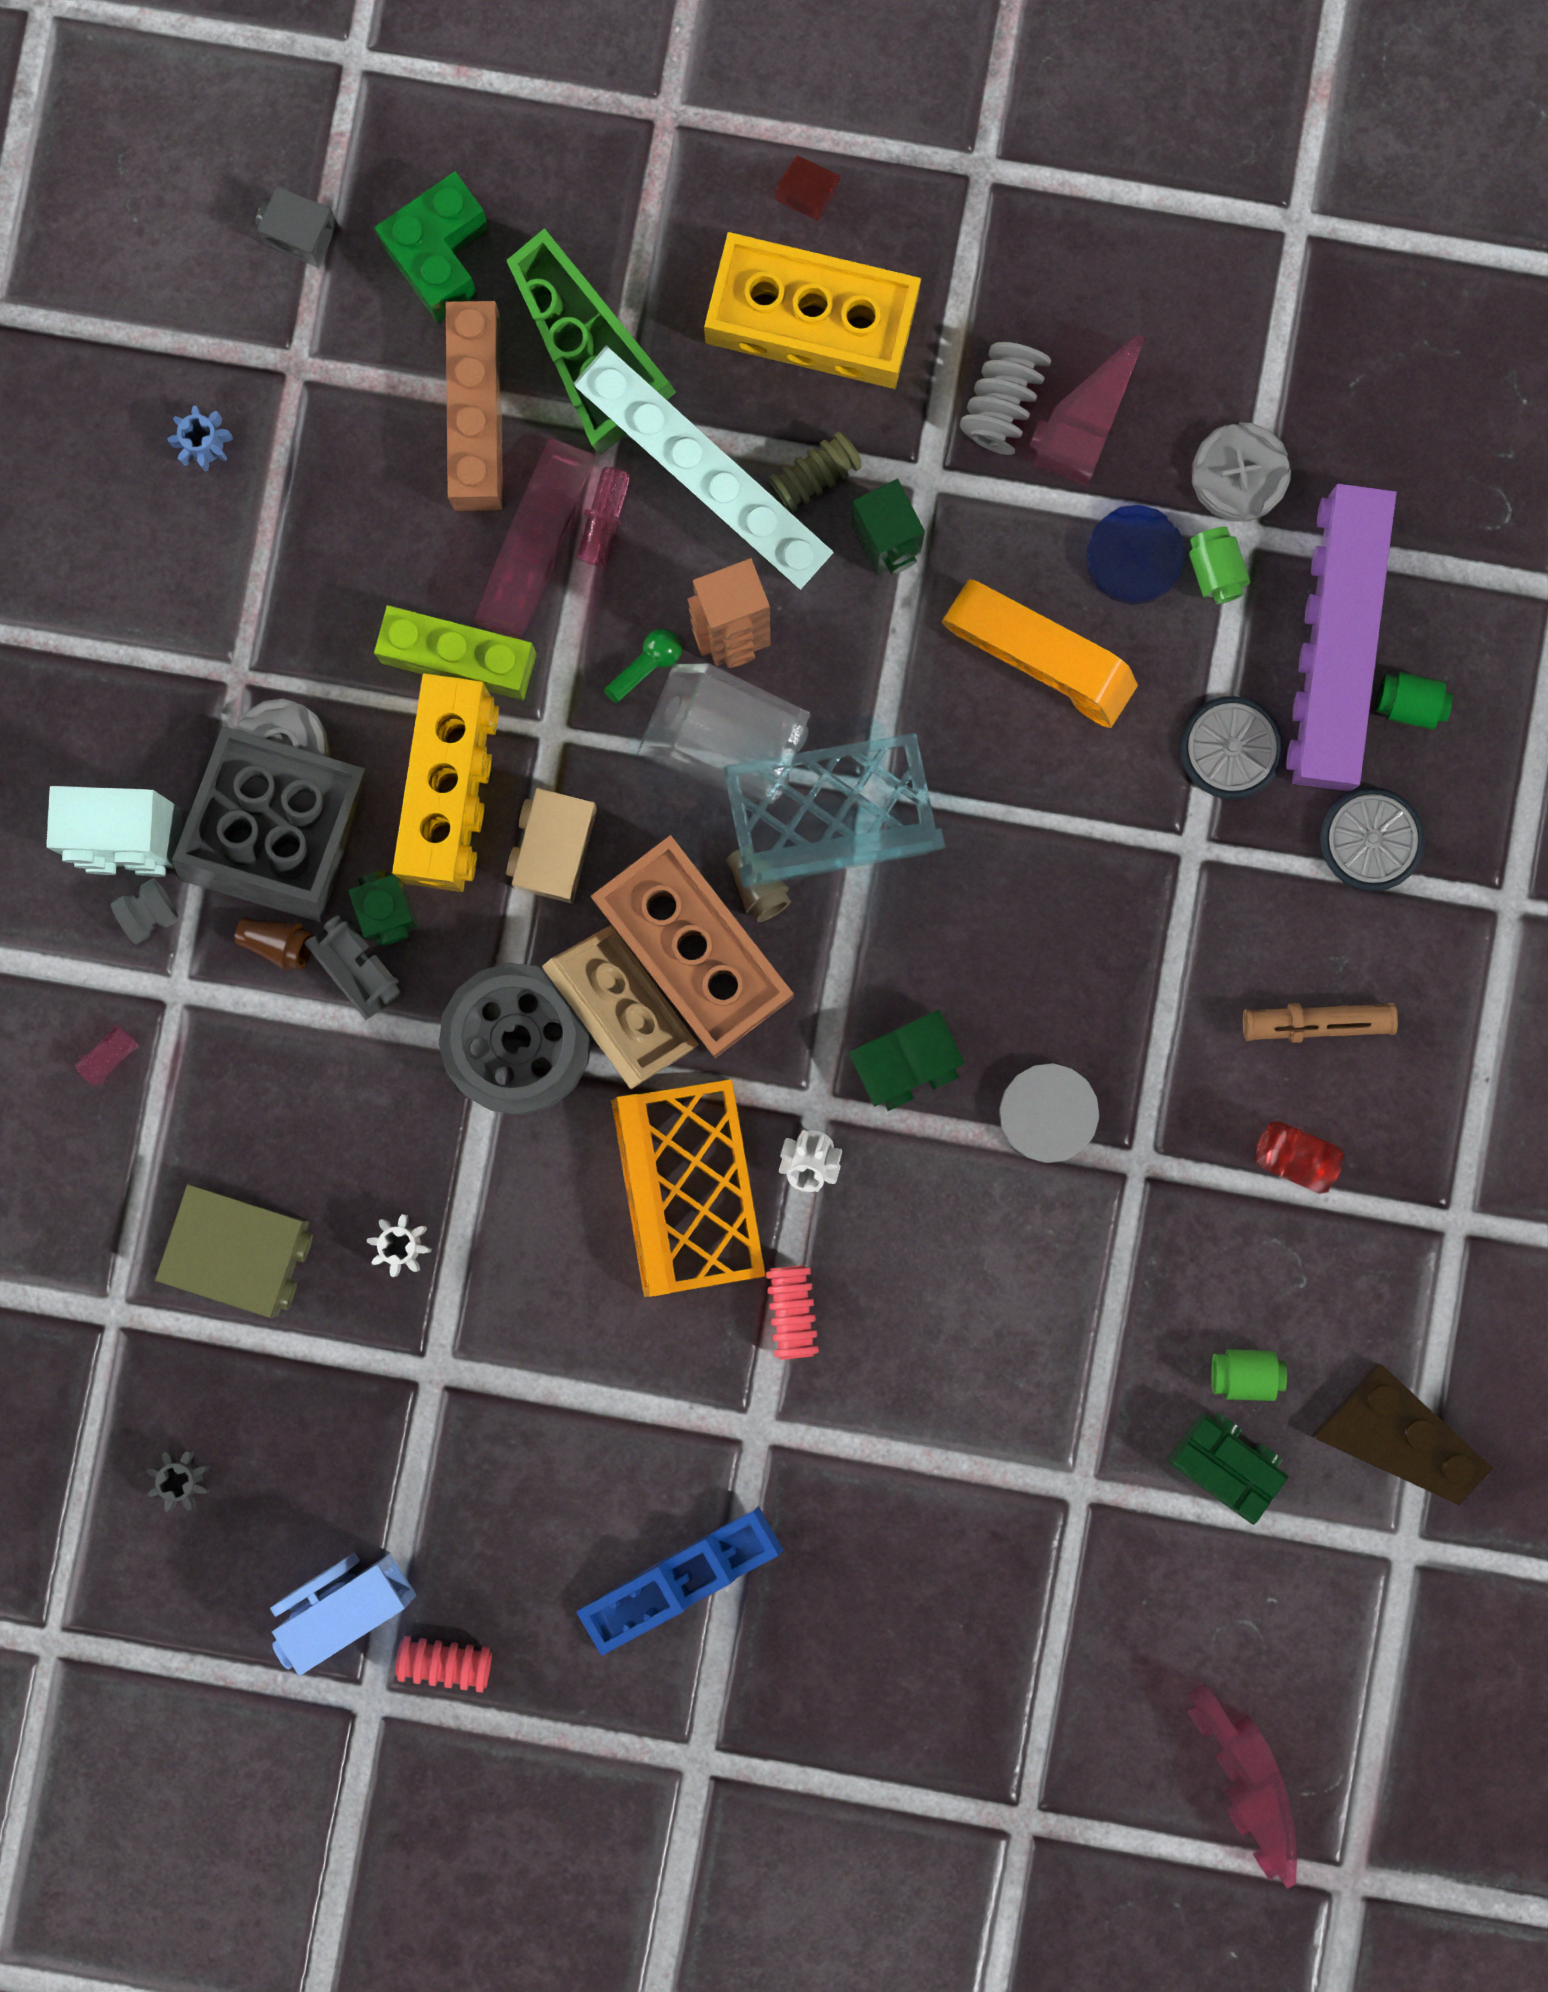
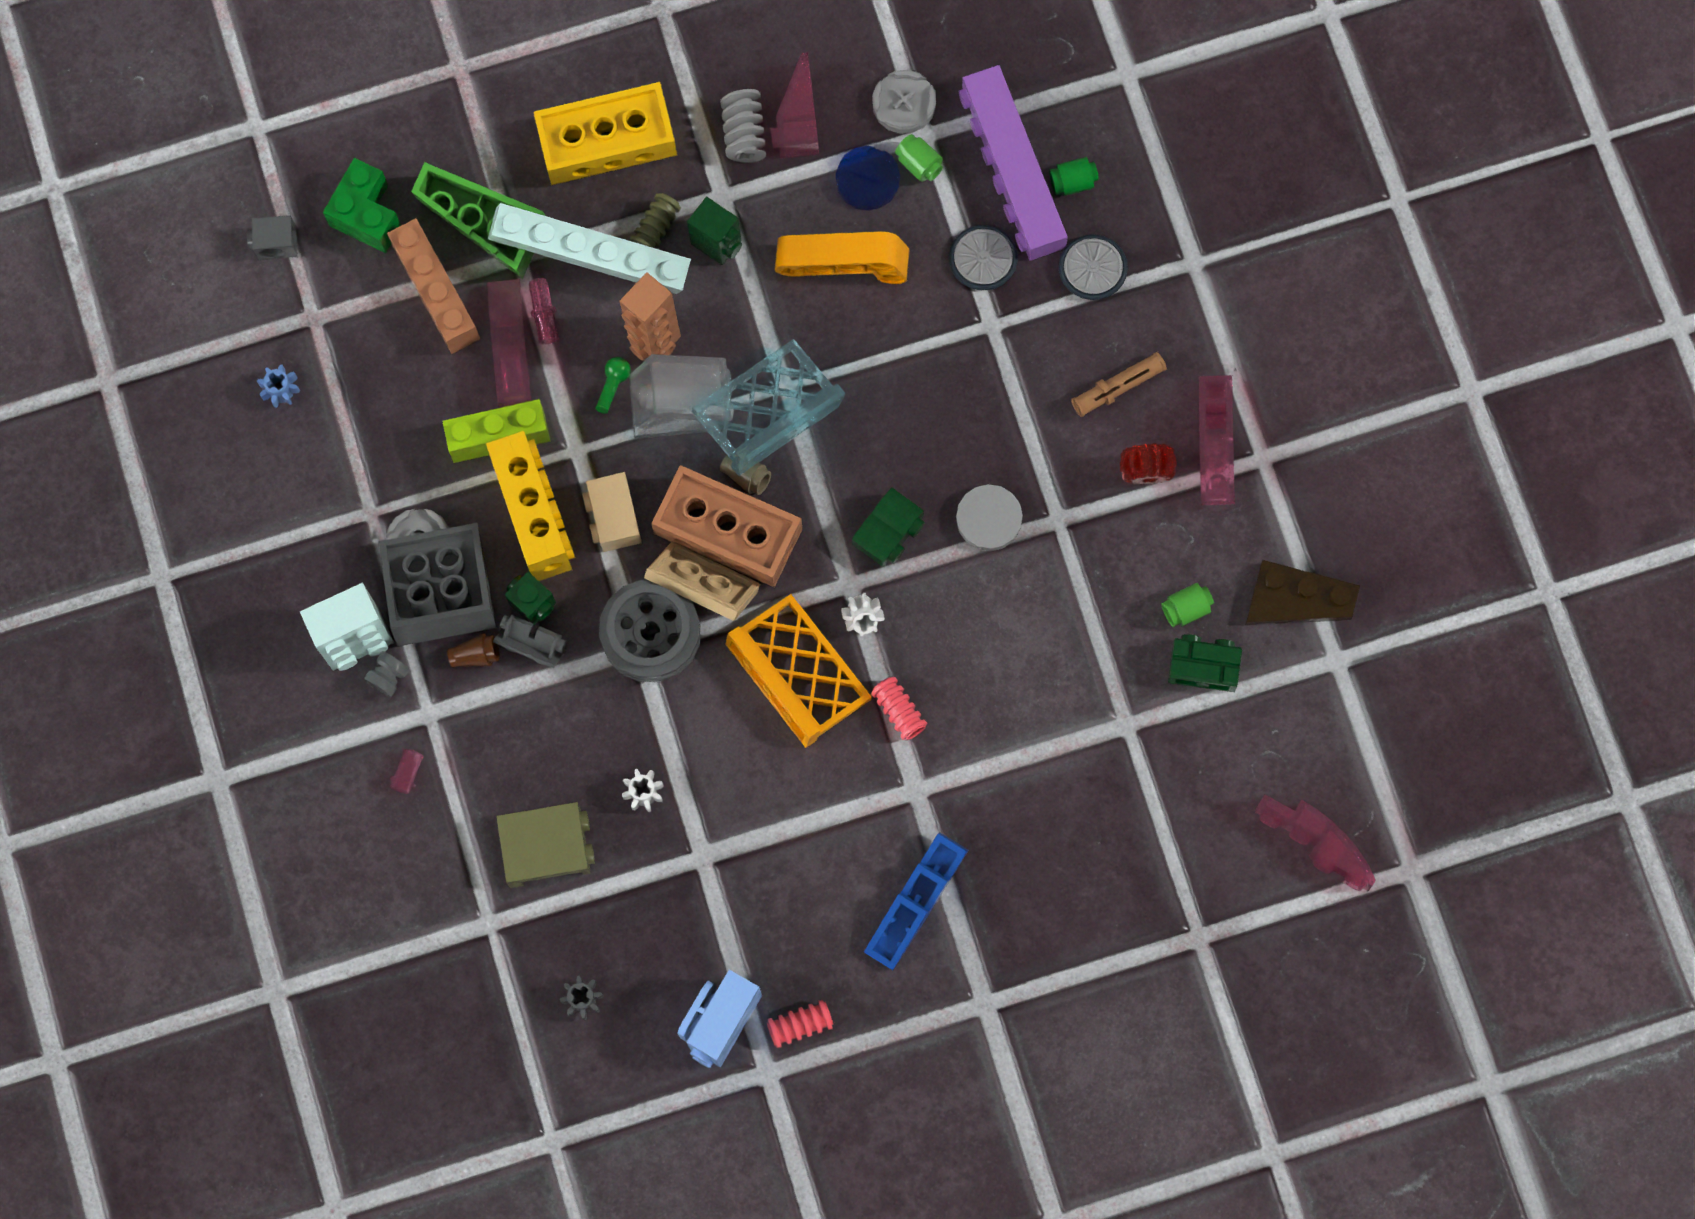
camera: 25 degrees left, 10 degrees down
(806, 187) = (564, 69): clear red slope -> none
(1409, 1170) = (1216, 440): none -> clear pink slope

